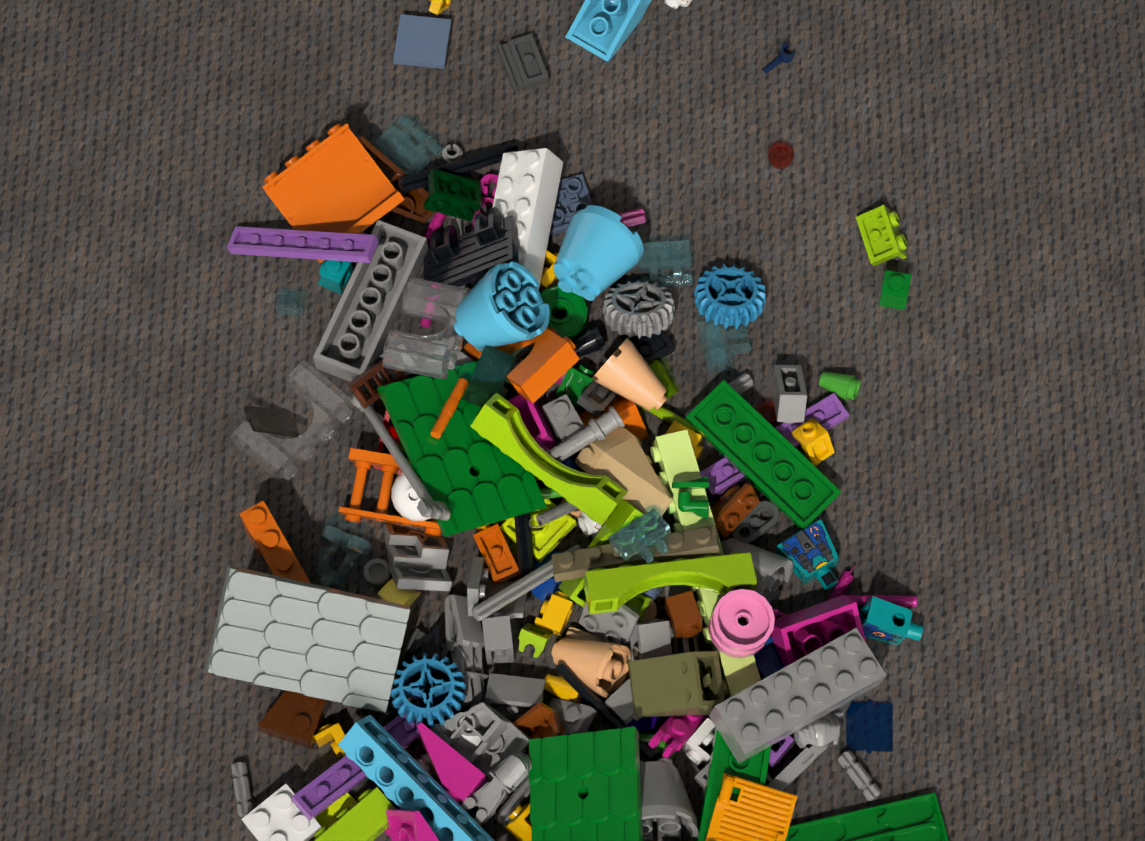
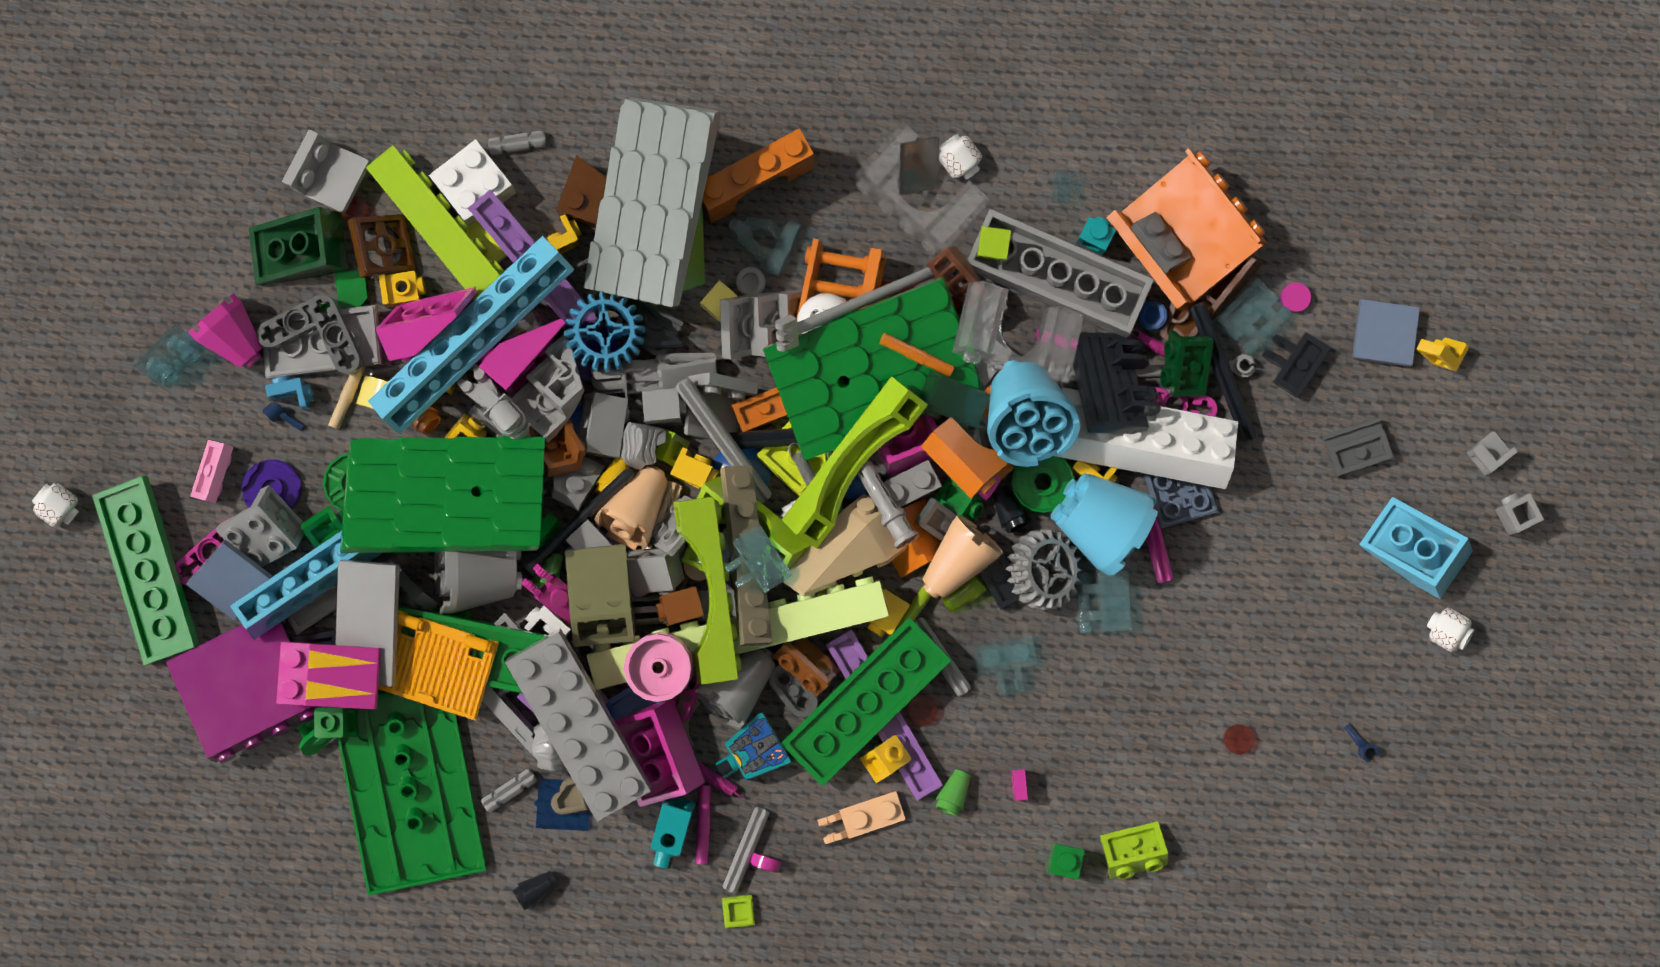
camera: 85 degrees right, 15 degrees up
(262, 389) = (960, 156): none -> white head
(303, 244) = (1125, 197): medium lavender plate -> none
(345, 214) = (1160, 242): none -> dark grey plate
(345, 350) = (993, 243): none -> lime tile
(390, 113) = (1295, 297): none -> dark pink tile
(408, 223) = (1153, 315): none -> blue tile
(451, 108) = (1301, 363): none -> black hinge
(532, 658) = (640, 444): none -> light grey hair
(697, 507) = (799, 611): green piece -> none
(730, 303) = (1042, 687): dark azure gear -> none
(789, 393) = (937, 733): light grey brick -> none
(830, 329) = (1019, 784): none -> dark pink tile
(862, 718) = (568, 799): none -> dark tan tile
(866, 460) = (865, 817): none -> light nougat hinge
(901, 562) = (746, 849): none -> light grey axle
(912, 542) = (765, 862): none -> dark pink tile
(951, 748) = (534, 890): none -> black cone
(957, 568) = (738, 911): none -> lime tile

